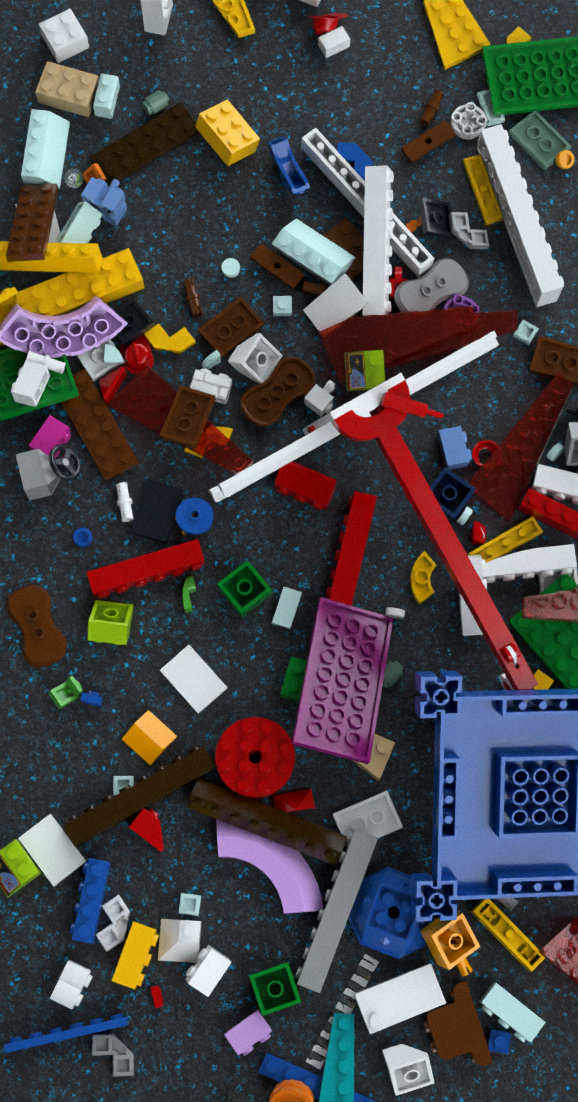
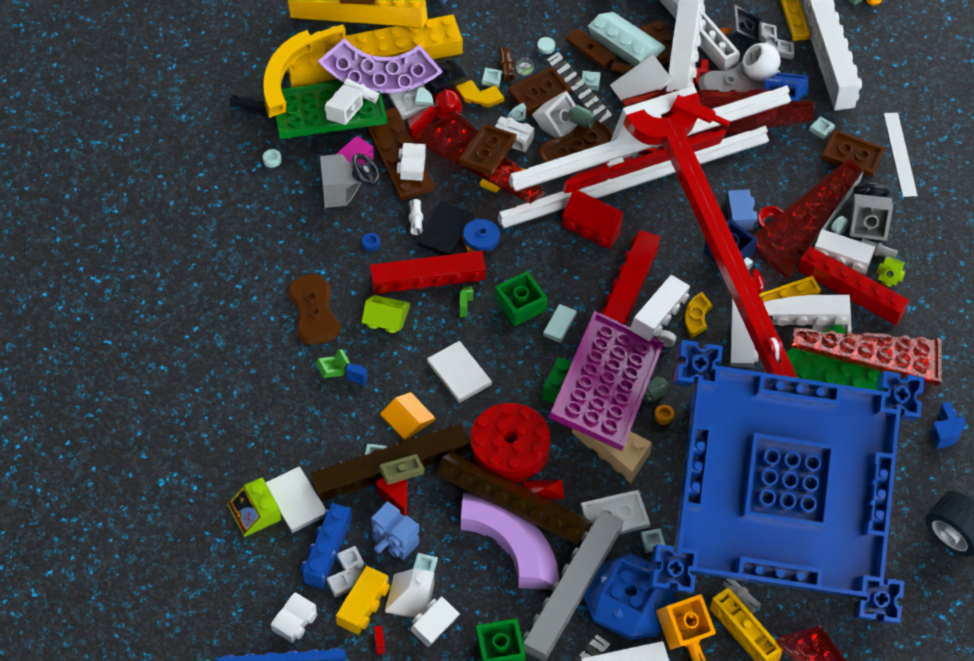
camera: 10 degrees right, 20 degrees down
(111, 440) = (412, 161): none -> white brick
(152, 811) = (401, 469): none -> olive plate
(154, 881) = (395, 531): none -> medium blue brick
(179, 315) = (492, 77): none -> light aqua tile
(211, 297) = (524, 66): none -> clear tile
(271, 317) = (579, 87): none -> sticker
(279, 359) = (582, 116): none -> sand green brick
(385, 582) = (660, 308): none -> white brick
(402, 699) = (664, 414): none -> light orange tile
(407, 843) = (651, 538): none -> light aqua tile
(457, 267) = (766, 64): none -> white piece
(487, 291) = (796, 83): none -> blue hips

